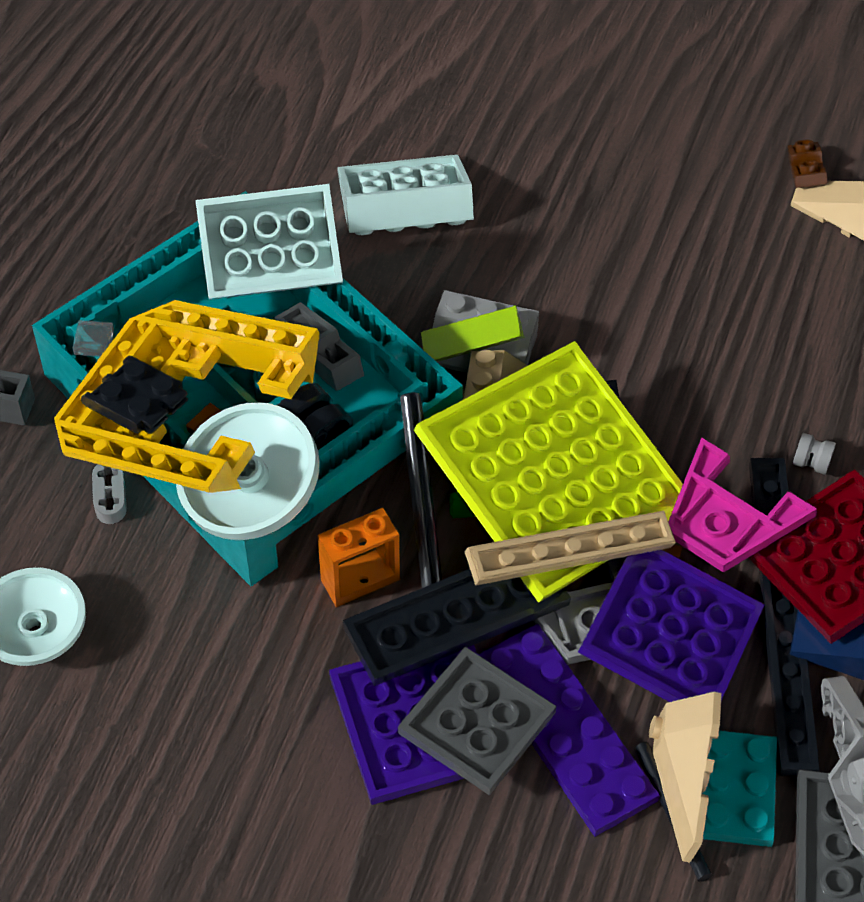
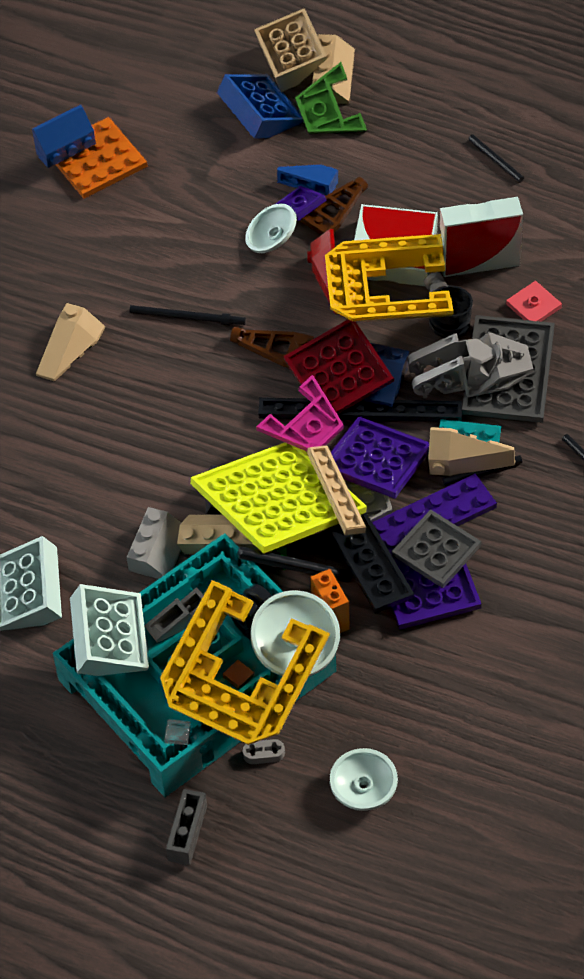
camera: 85 degrees left, 0 degrees up
(137, 396) = (243, 688): black plate -> none
(473, 334) = (166, 541): lime slope -> none
(807, 163) = (26, 366): reddish brown slope -> none
(814, 453) = (255, 384): light grey wheel -> none

